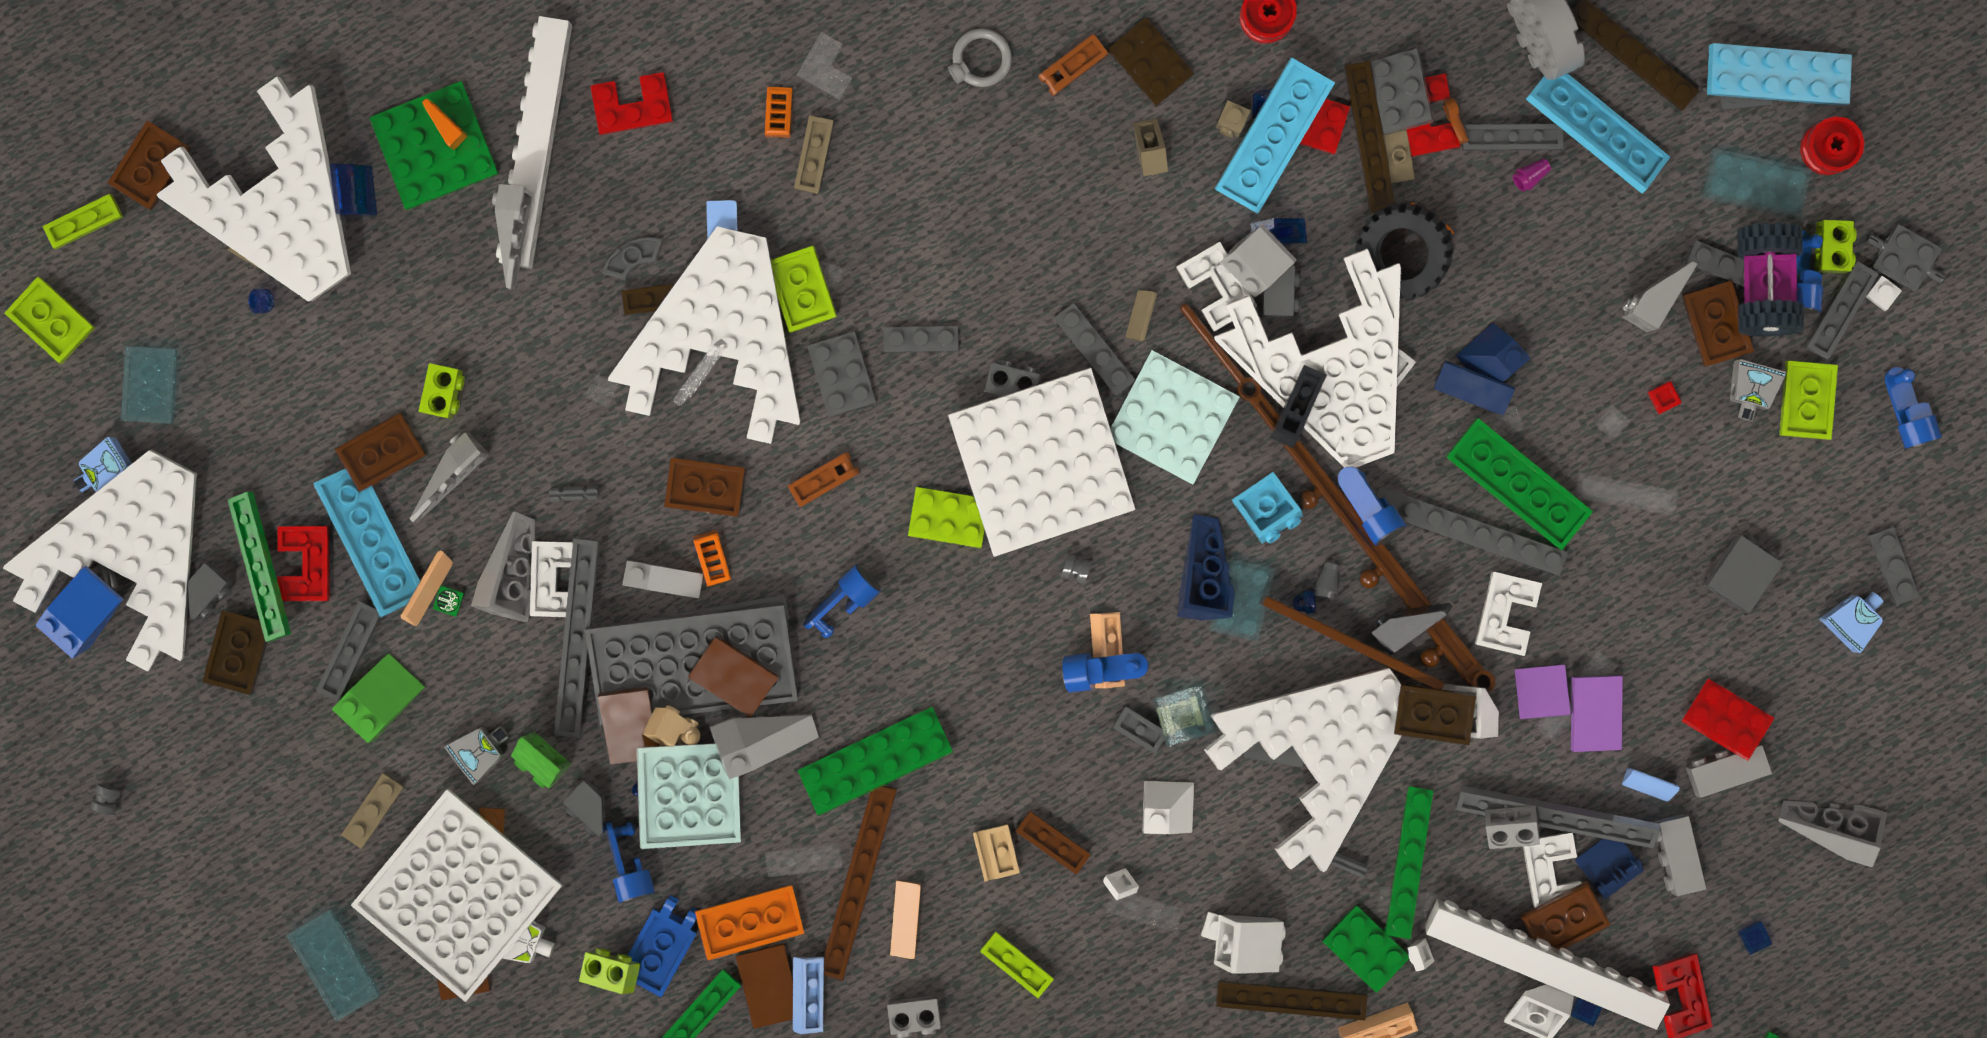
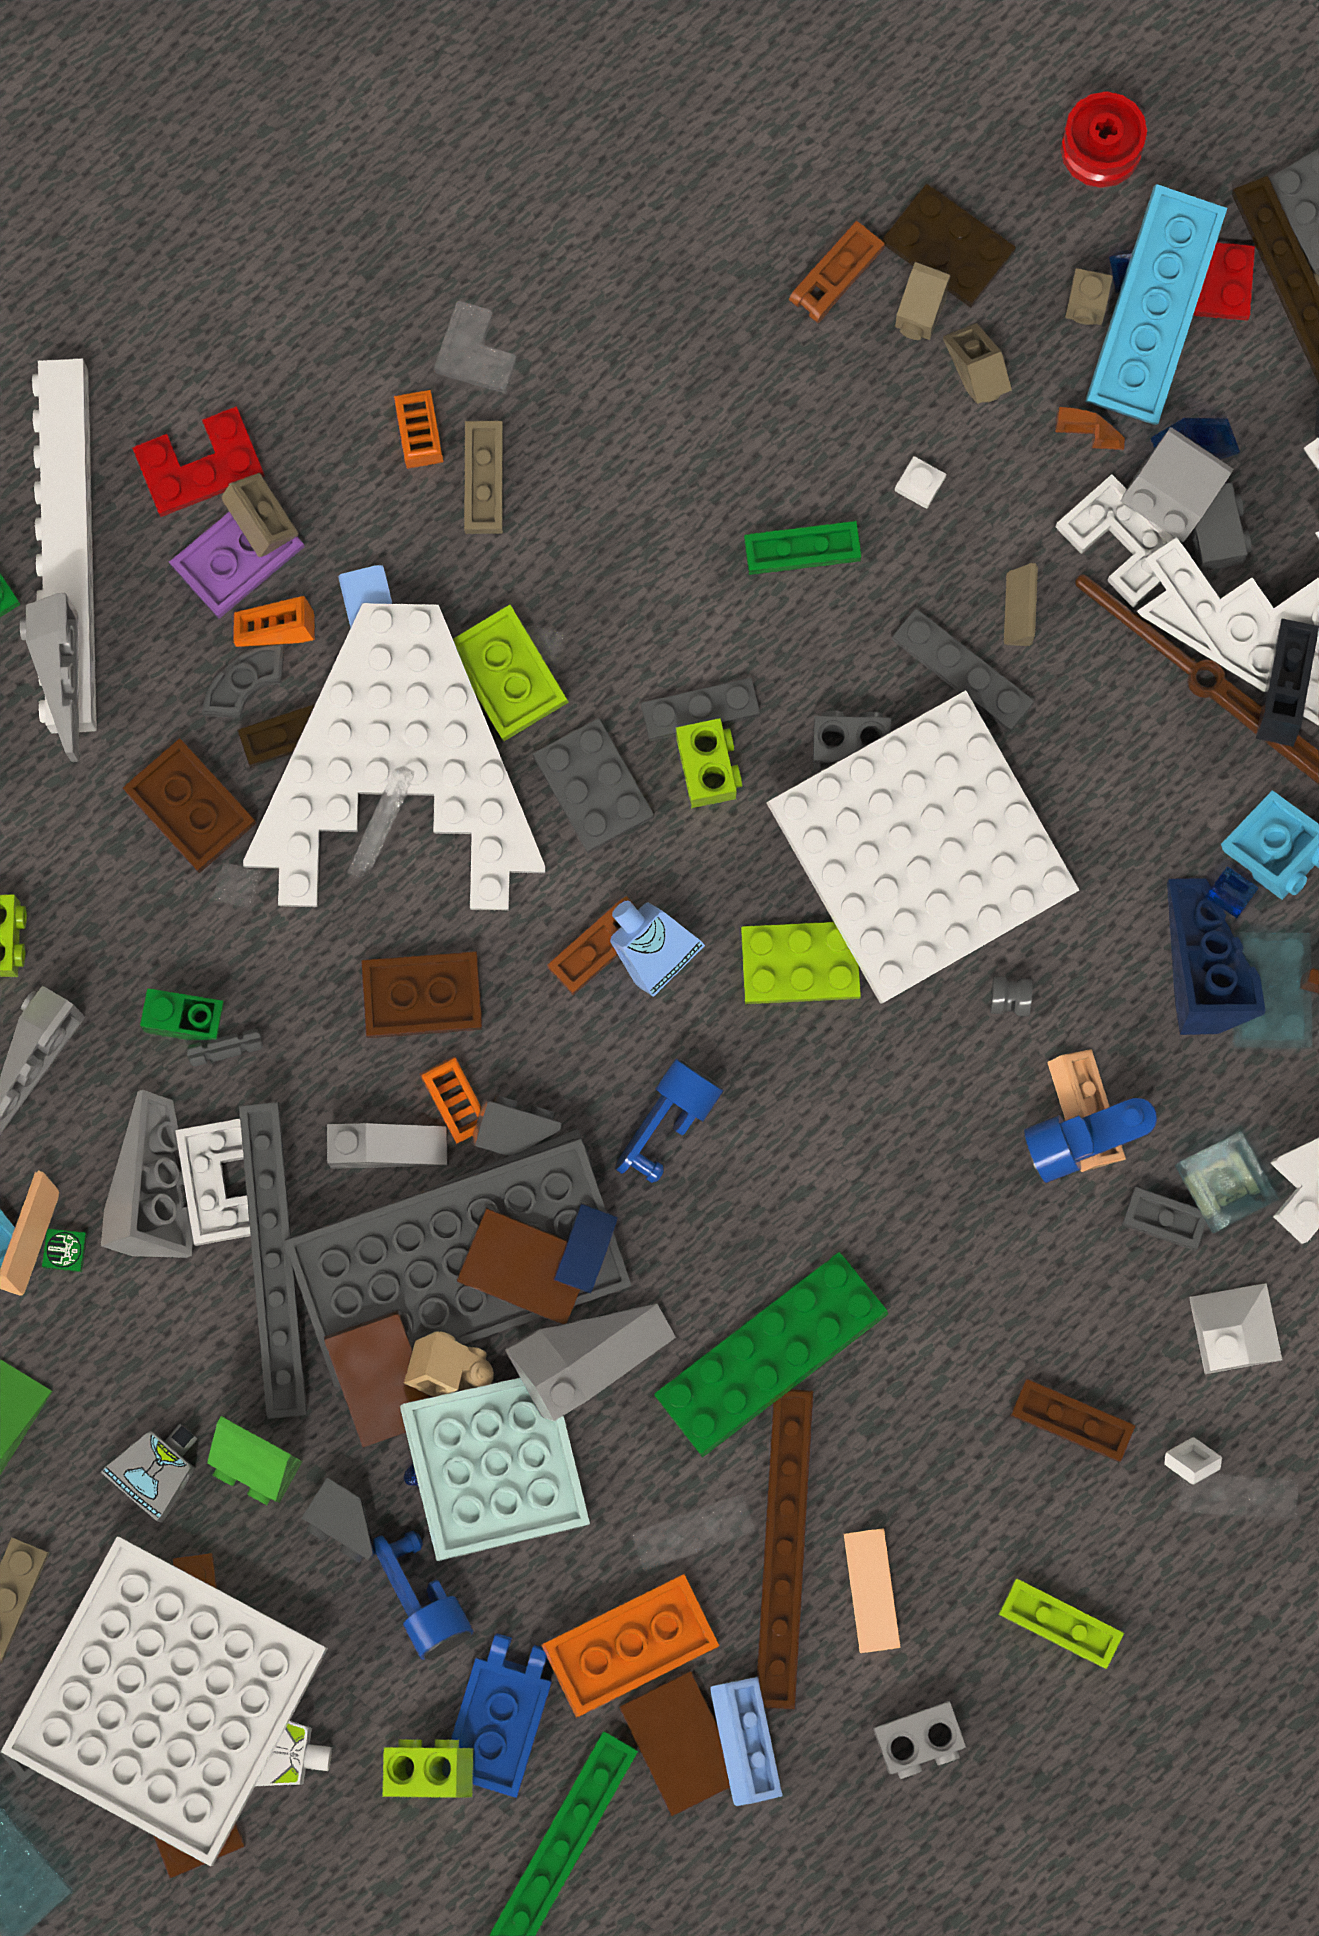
camera: 10 degrees left, 10 degrees down
(549, 469) = (181, 1015): none -> green slope
(581, 332) = (189, 805): none -> reddish brown plate
(644, 171) = (225, 567): none -> medium lavender tile
(663, 149) = (258, 514): none -> dark tan slope
(674, 228) = (287, 633): none -> orange slope
(742, 586) = (509, 1129): none -> dark grey slope
(772, 673) = (585, 1248): none -> dark blue slope
(856, 488) = (651, 945): none -> light blue torso
(910, 376) = (700, 764): none -> lime brick
(959, 69) = (673, 314): light grey piece -> none
(996, 852) = (988, 1455): tan plate -> none
(1009, 247) = (802, 548): none -> green plate
(1095, 218) = (920, 482): none -> white plate
(1122, 101) = (922, 302): none -> dark tan slope
(1172, 417) = (1103, 744): light aqua plate -> none
(1221, 212) = (1083, 421): none -> dark orange slope
(1231, 531) = (1232, 892): none -> clear blue tile

